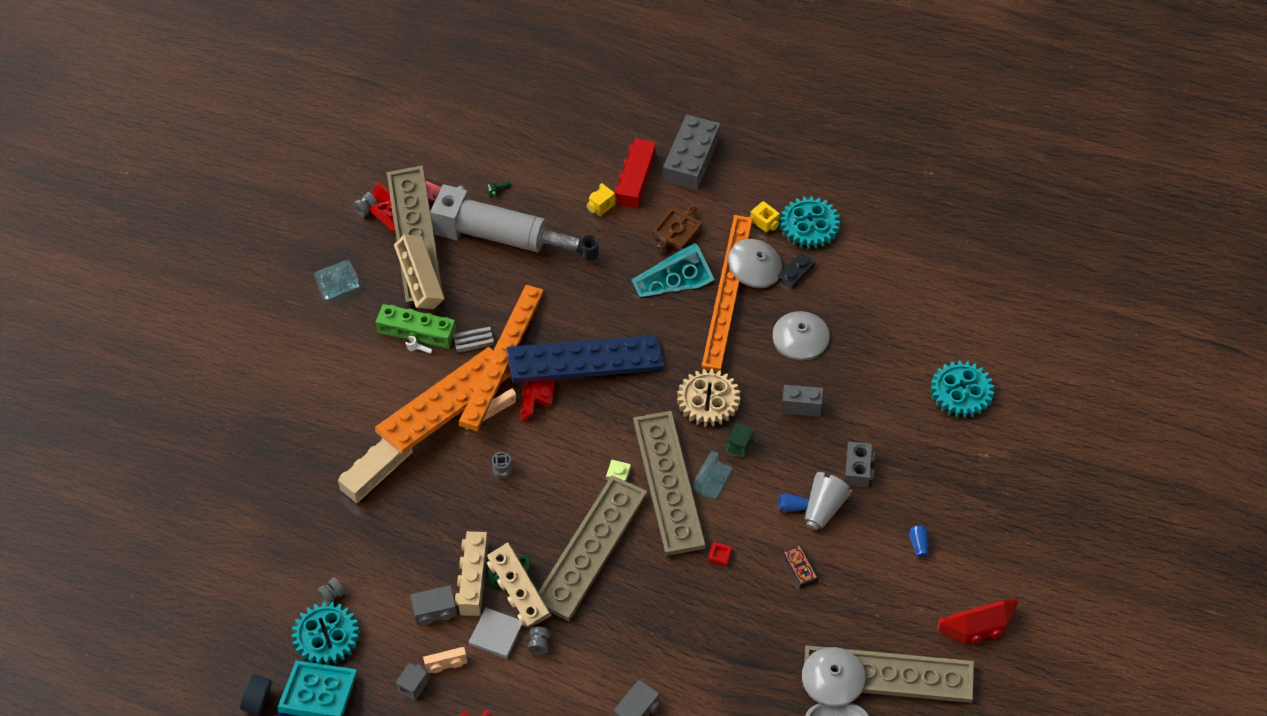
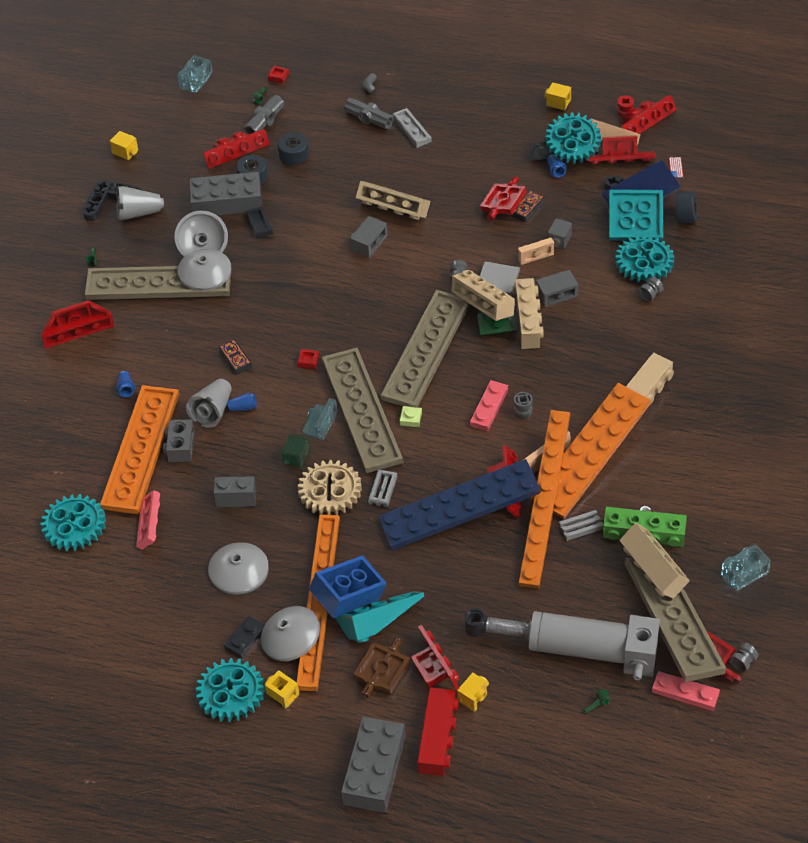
camera: 175 degrees right, 5 degrees down
(535, 475) = (489, 405): none -> coral plate
(633, 221) = (431, 664): none -> red bracket
(651, 410) = (372, 499): none -> light grey tile
(699, 284) = (347, 586): none -> blue brick
(888, 384) = (148, 520): none -> coral plate
(899, 464) = (139, 450): none -> orange plate

